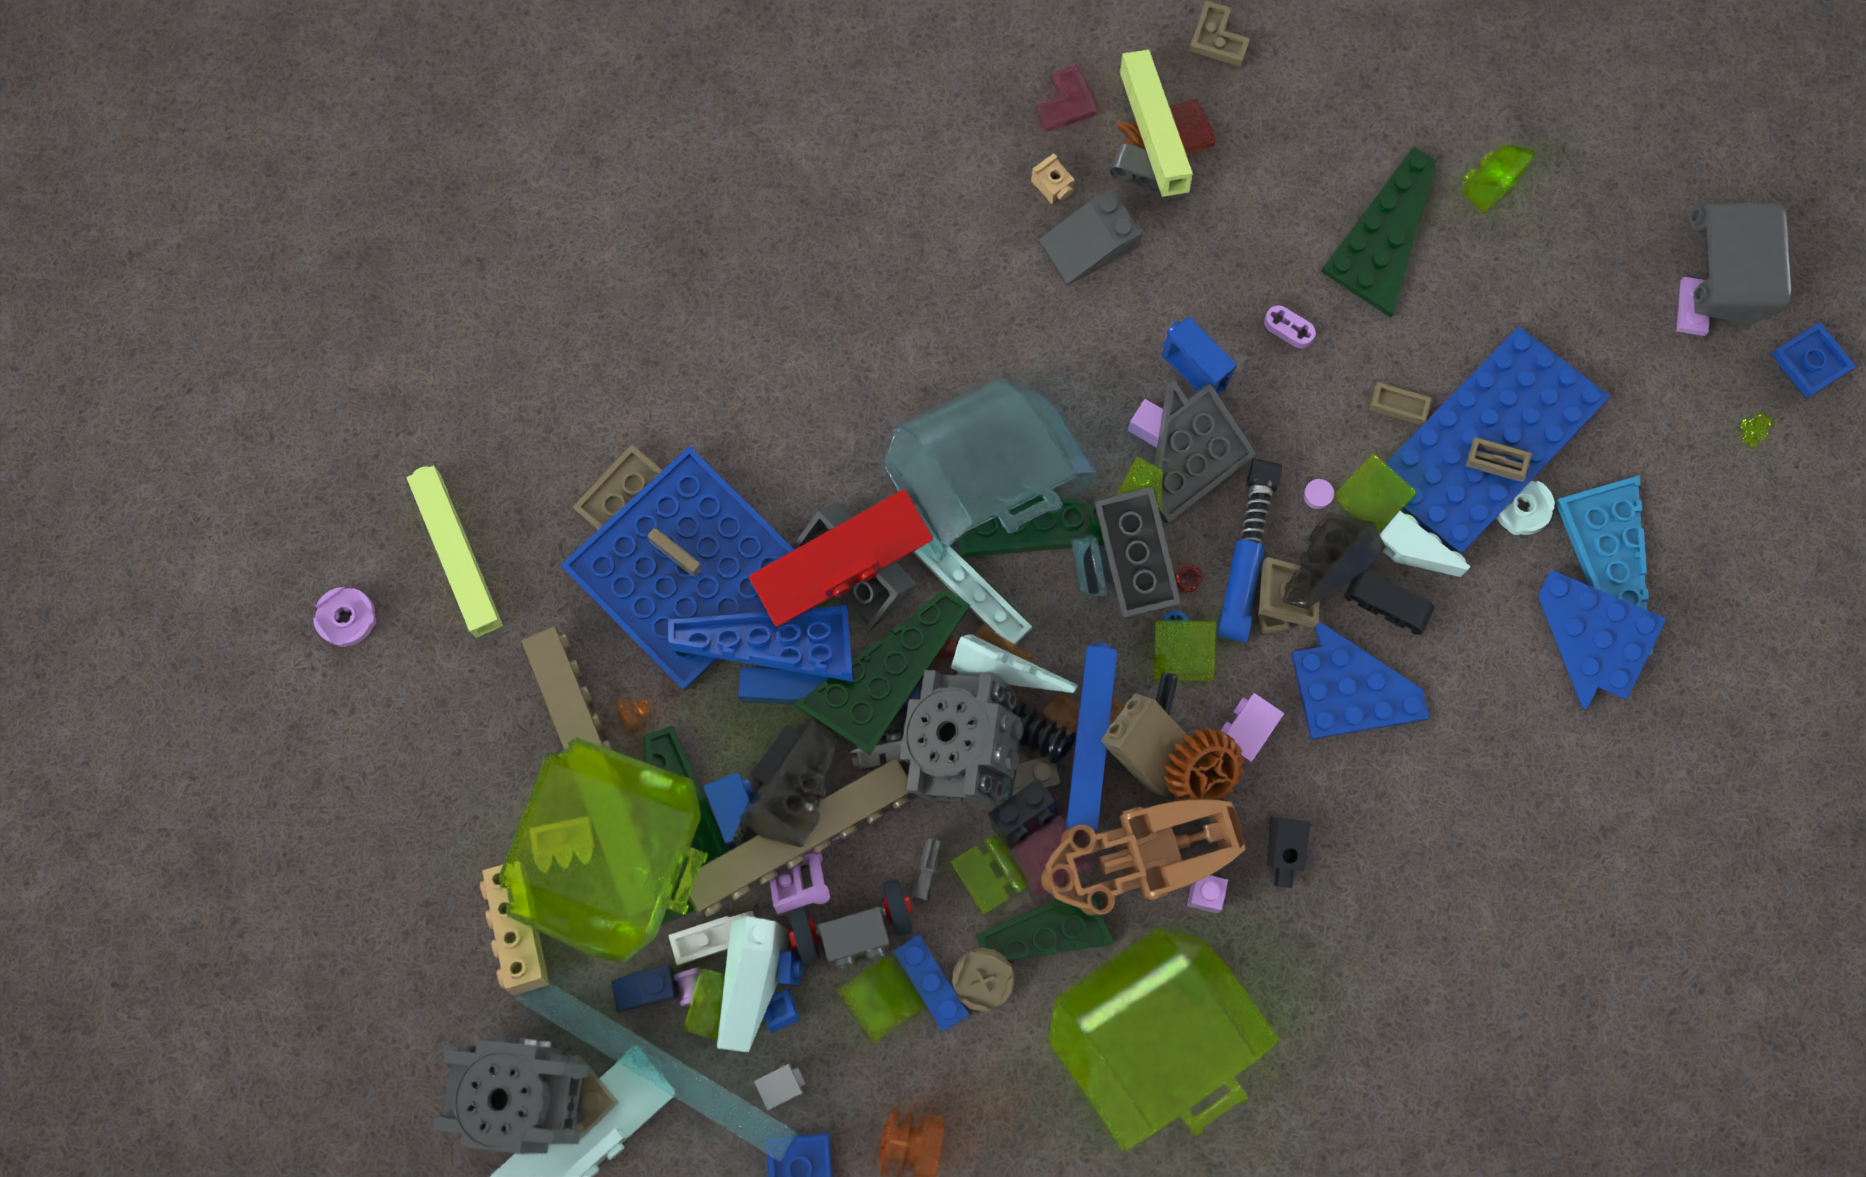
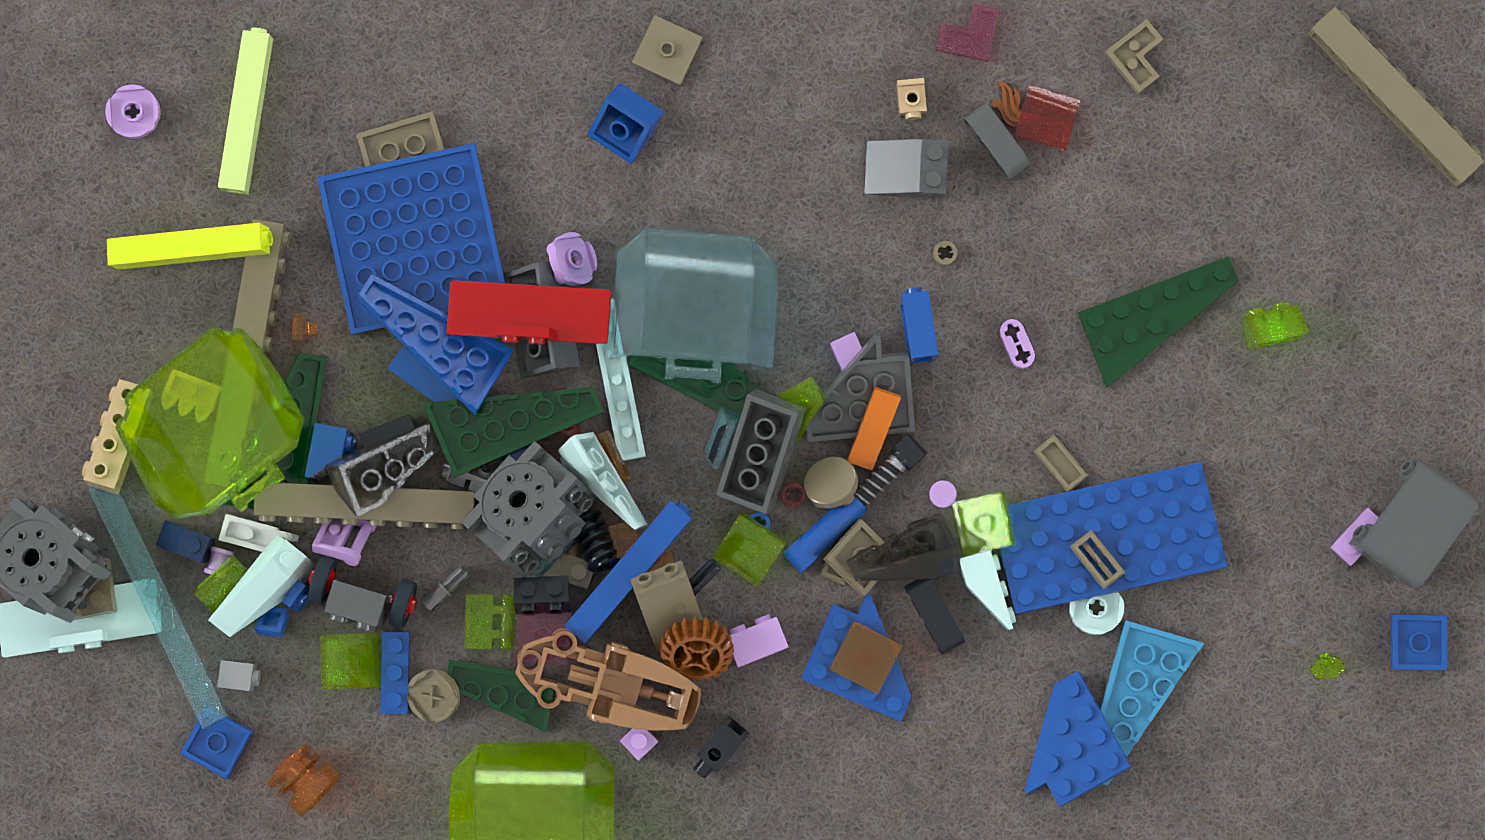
camera: 40 degrees right, 10 degrees up
(474, 702) = (189, 246): none -> neon yellow brick
(675, 552) = (408, 225): dark tan tile -> none
(811, 269) = (667, 50): none -> dark tan plate
(815, 350) = (625, 122): none -> blue slope
(846, 493) = (564, 269): none -> lavender plate
(1156, 123) = (1023, 104): yellowish green brick -> none
(1179, 283) = (943, 245): none -> dark tan bush
(1217, 542) = (831, 483): none -> dark tan tile
(1220, 471) = (873, 428): none -> orange tile
(1359, 678) = (865, 657): none -> clear orange plate

